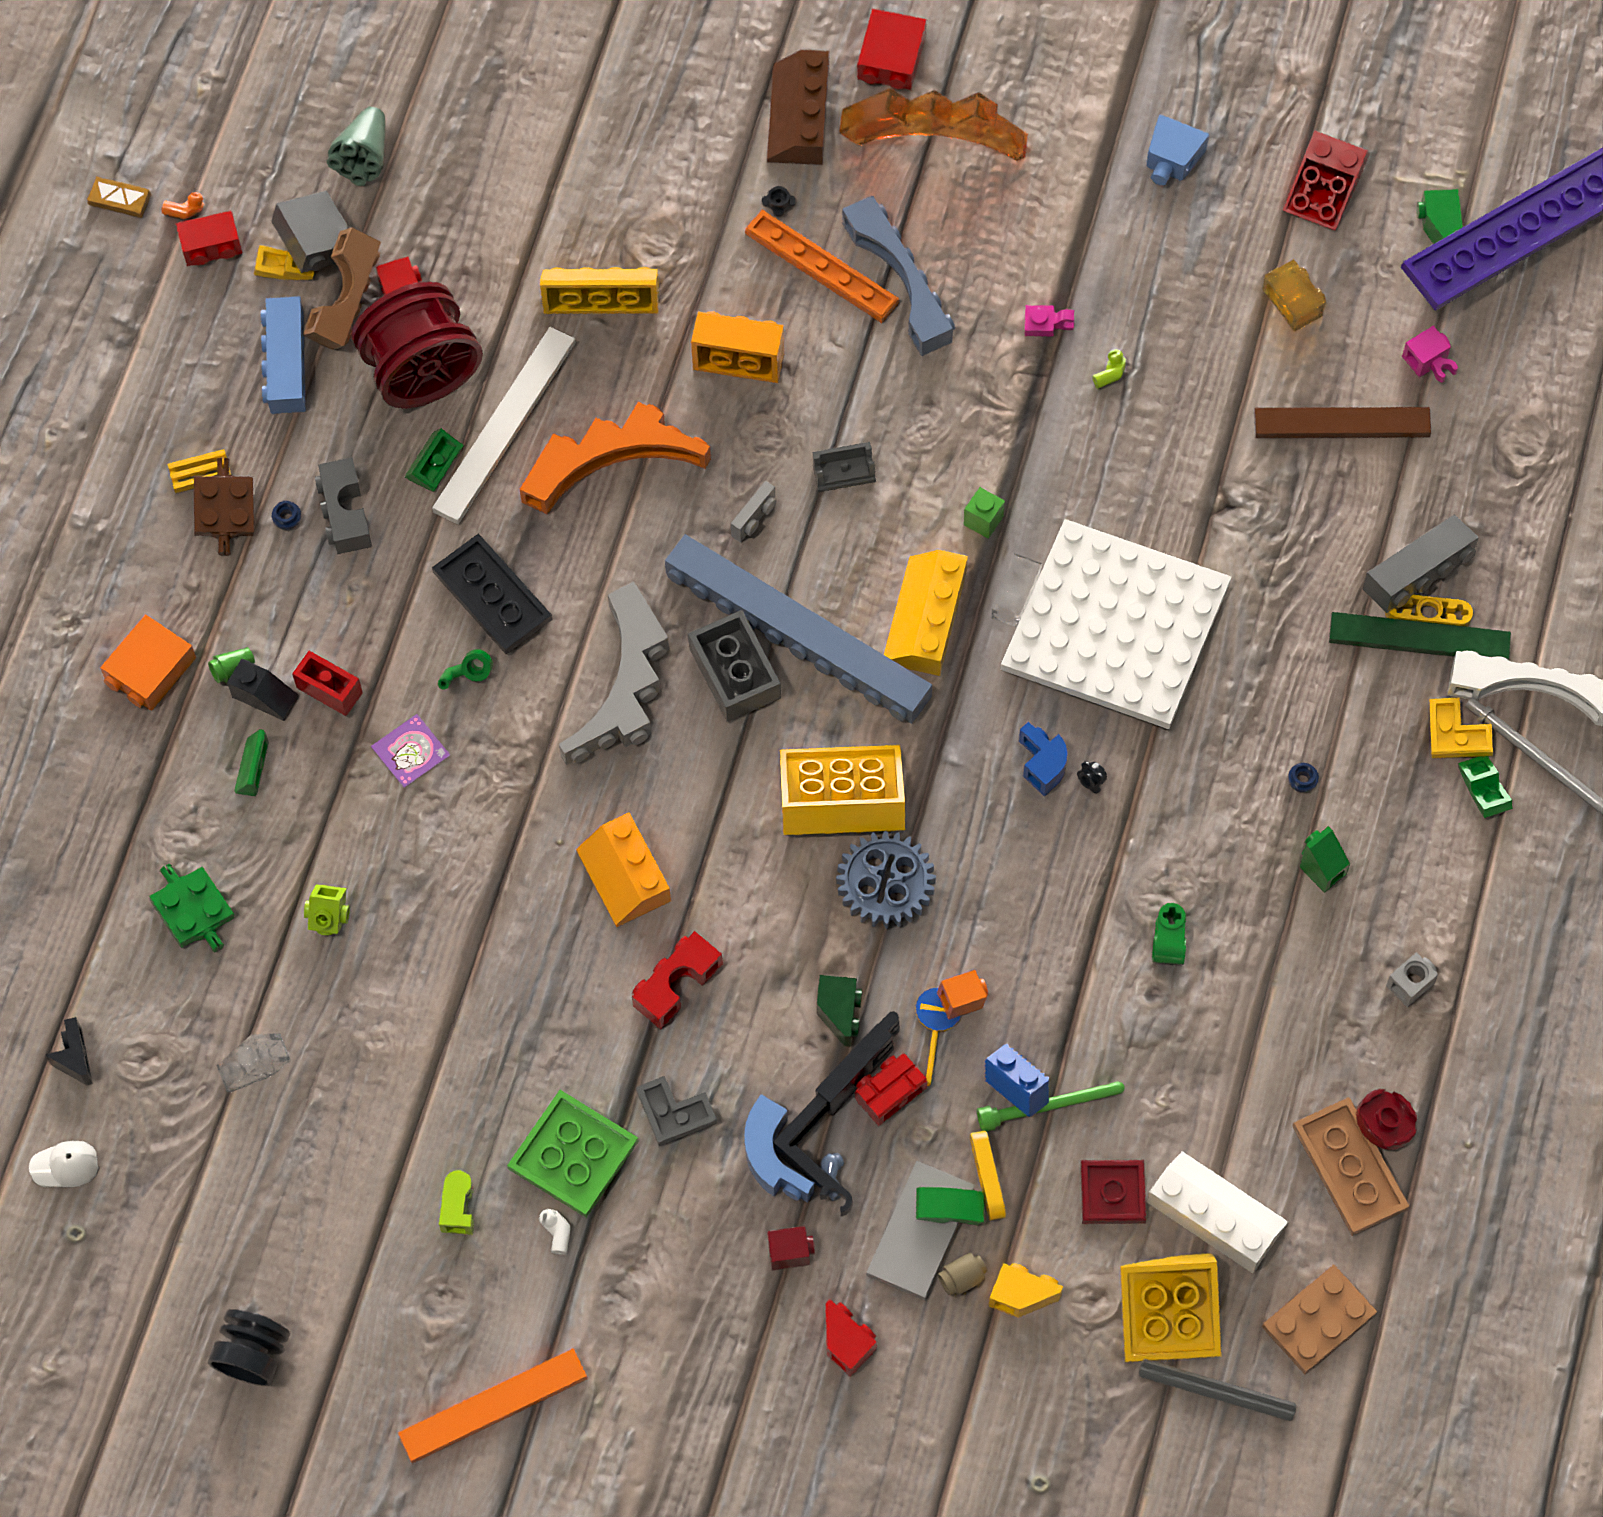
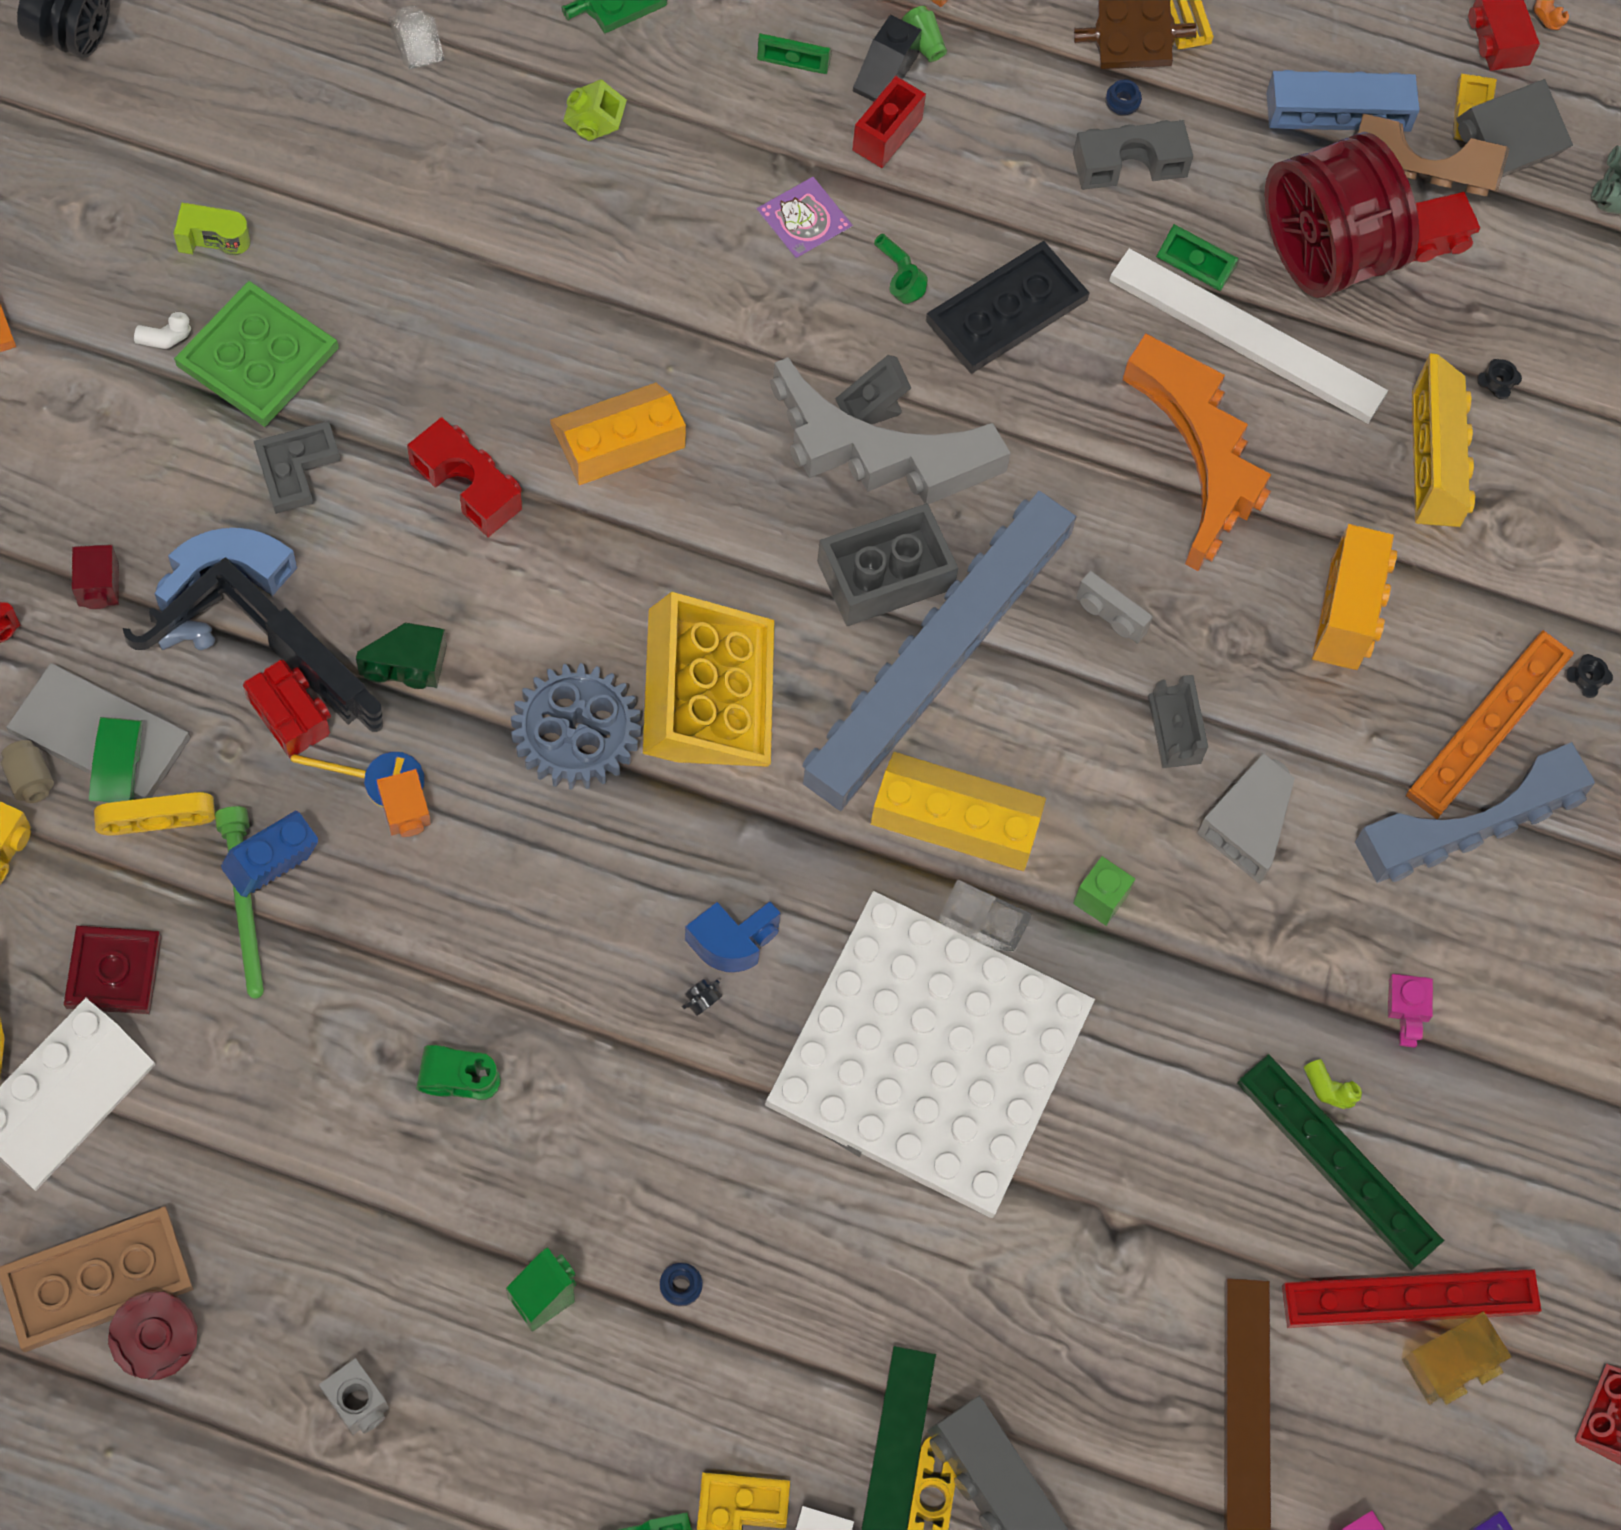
camera: 85 degrees right, 0 degrees up
(532, 244) = (1502, 369): none -> black plate
(582, 683) = (876, 392): none -> dark grey slope
(914, 417) = (1251, 817): none -> light grey slope
(1162, 366) = (1340, 1162): none -> dark green tile
(1253, 324) = (1410, 1298): none -> red tile

